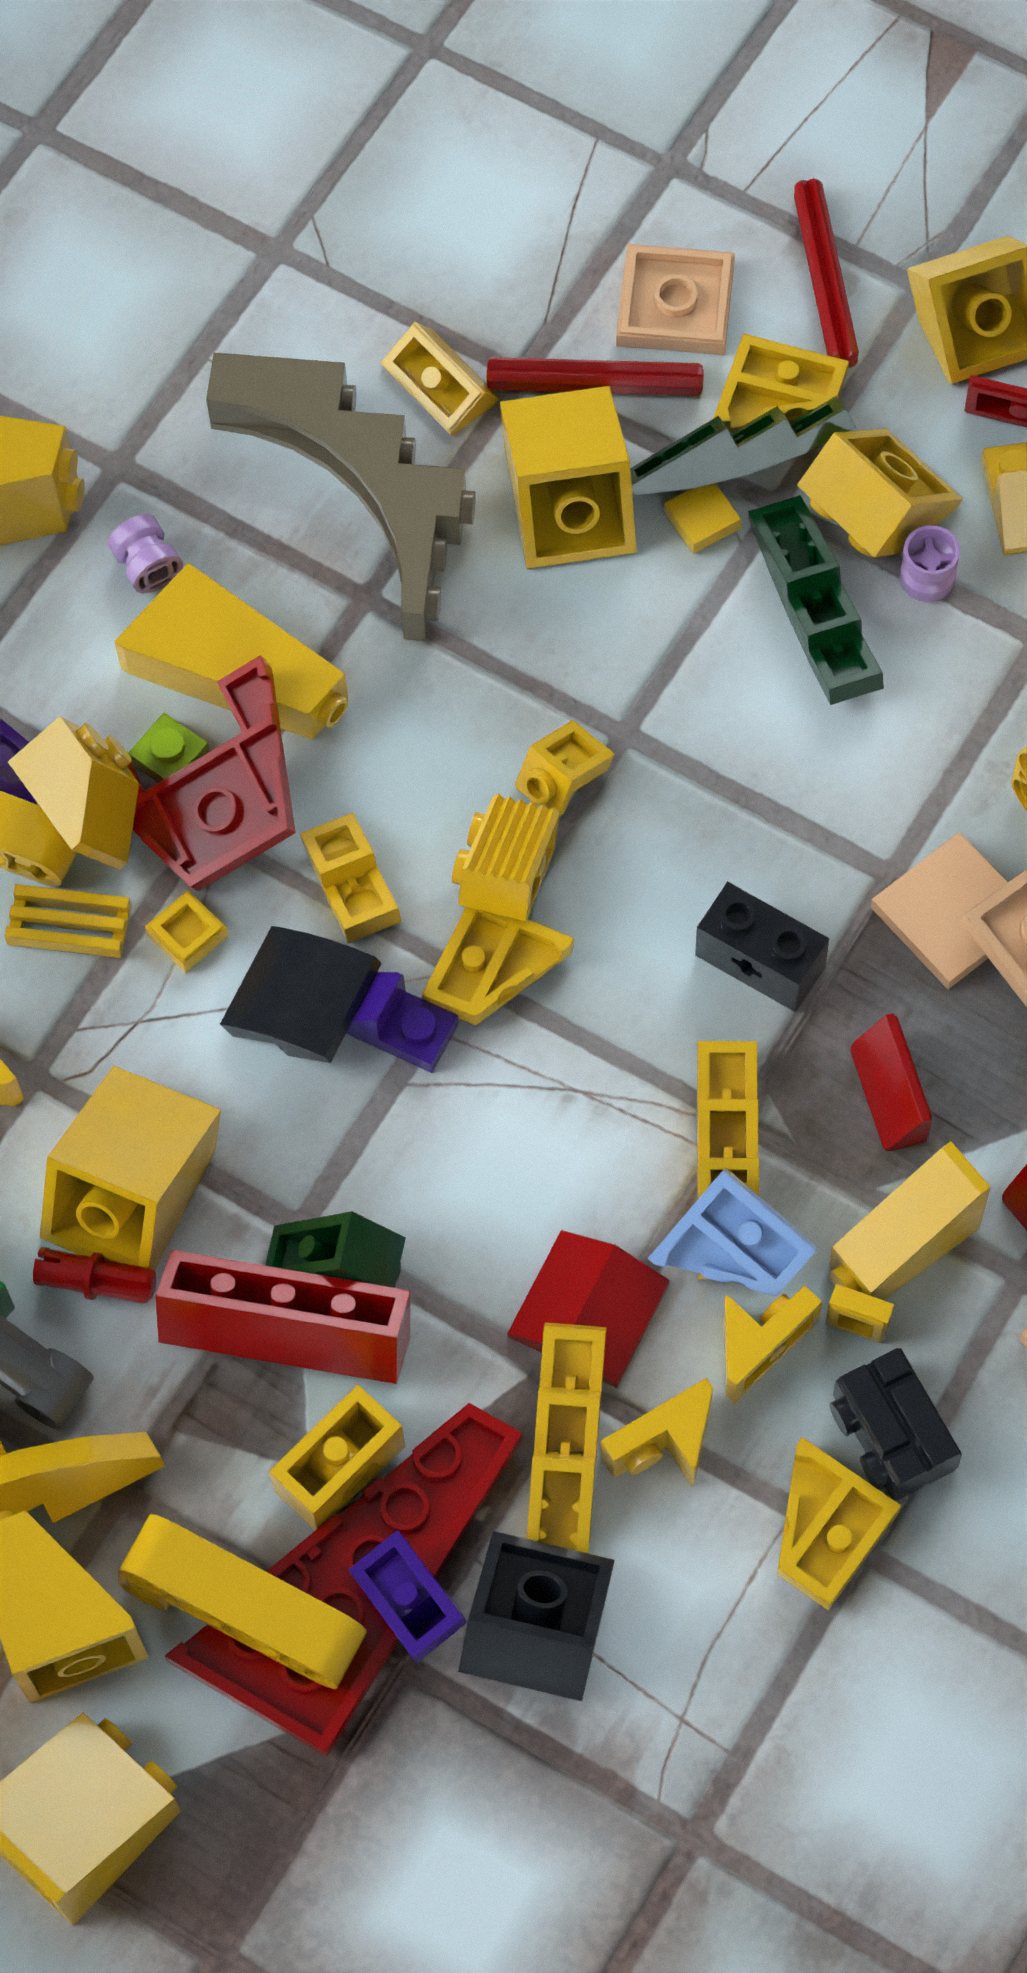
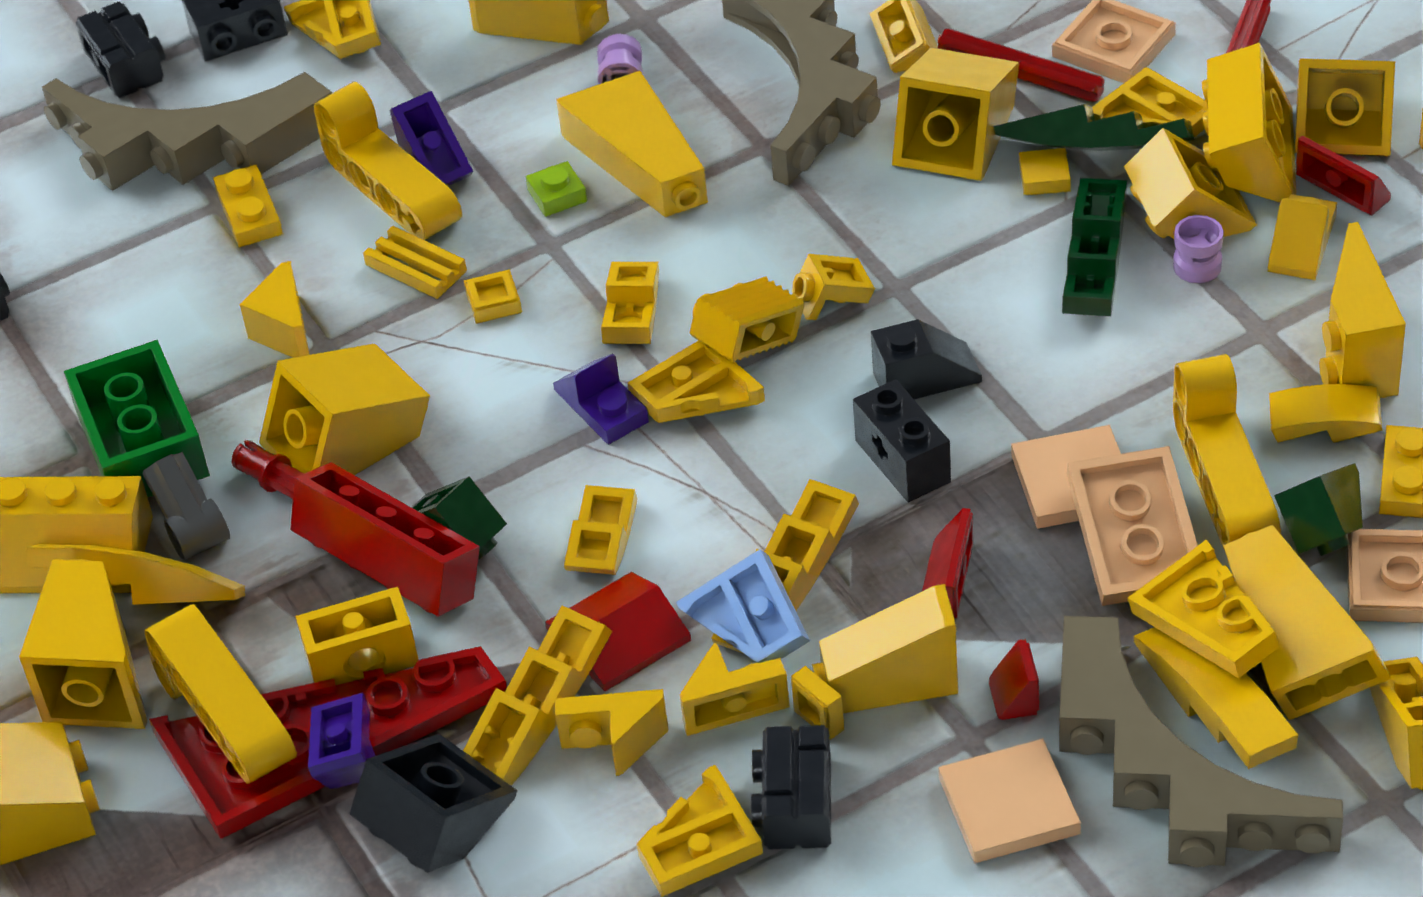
camera: 30 degrees right, 20 degrees down
(82, 788) = (468, 169): yellow slope -> none
(228, 800) = (569, 219): wing -> none
(301, 994) = (542, 354): black slope -> none
(500, 1194) = (601, 530): none -> yellow slope
(719, 834) = (922, 359): none -> black slope
(902, 380) = (1249, 124): none -> yellow slope

